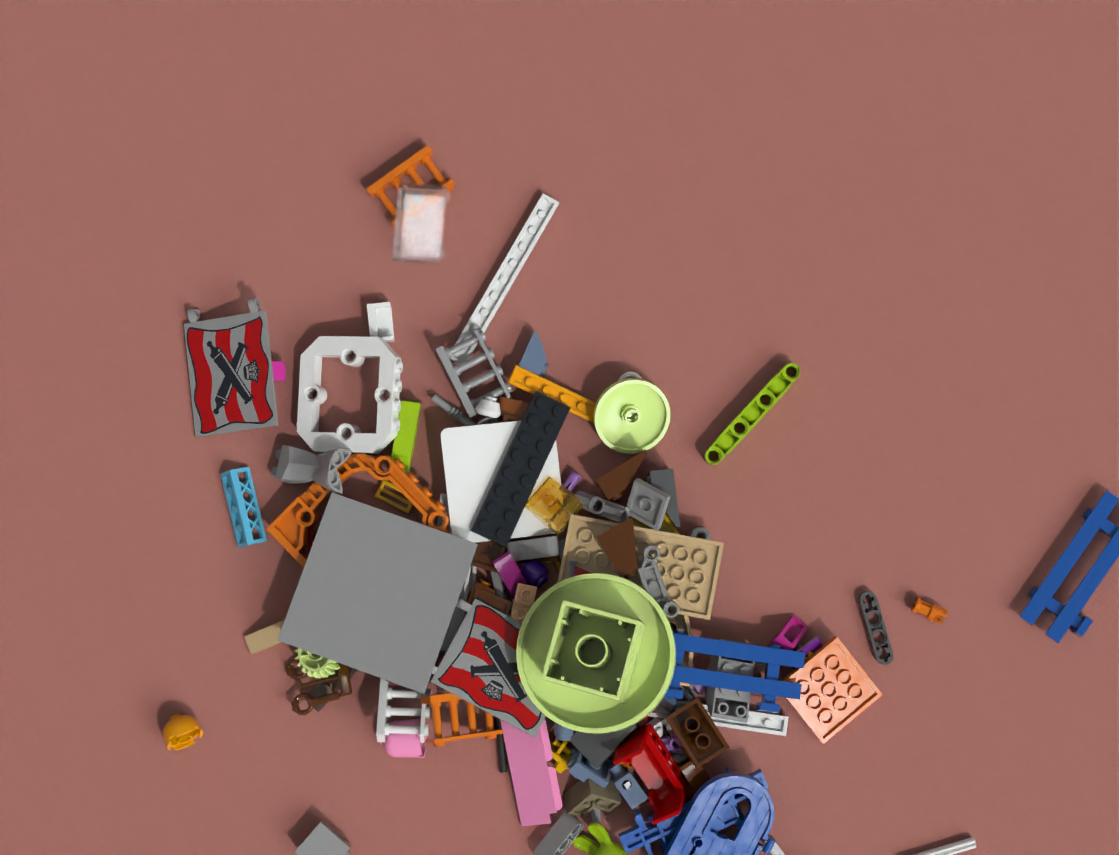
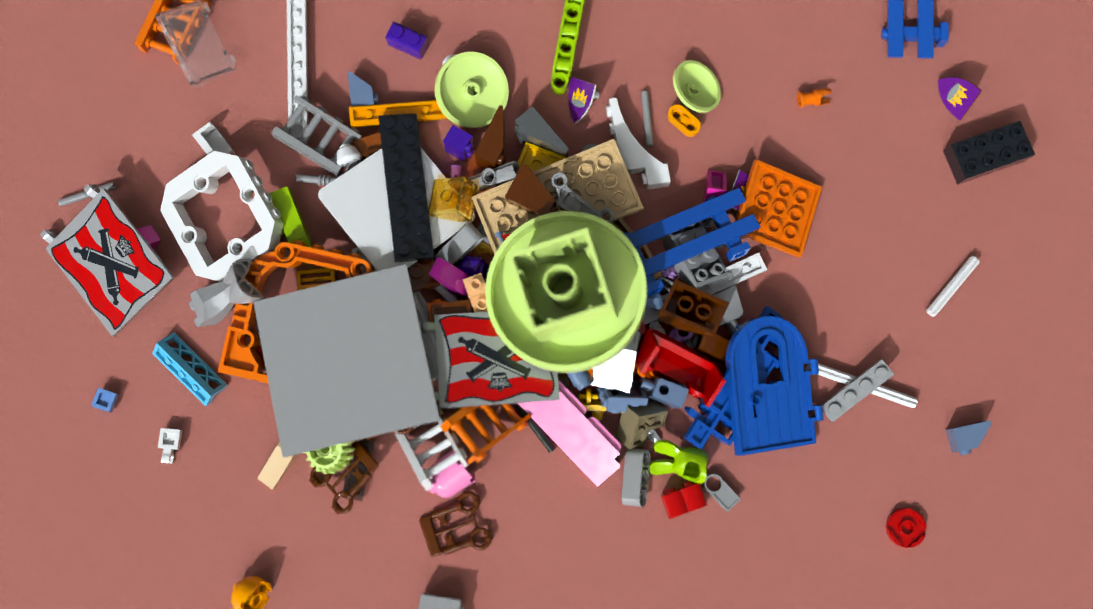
camera: 35 degrees left, 5 degrees down
(158, 489) = (105, 400): none -> medium blue plate
(190, 560) = (169, 441): none -> white plate
(245, 296) = (83, 195): none -> light grey piece
(357, 777) = (430, 534): none -> reddish brown piece
(591, 458) = (459, 144): none -> dark purple brick
(604, 333) = (407, 40): none -> dark purple brick
(647, 504) = (530, 146): light grey plate -> none
(723, 481) = (580, 98): none -> dark purple shield
(734, 558) = (634, 155): none -> white arch
(736, 740) = (734, 309): none -> light grey torso
(770, 535) = (647, 118): none -> light grey bar
(801, 558) = (685, 119): none -> light orange plate
(837, 539) = (696, 86): none -> yellowish green dish
(878, 627) = (782, 136): dark grey beam -> none
(1050, 758) = (988, 152): none -> black brick
(1057, 690) = (958, 95): none -> dark purple shield

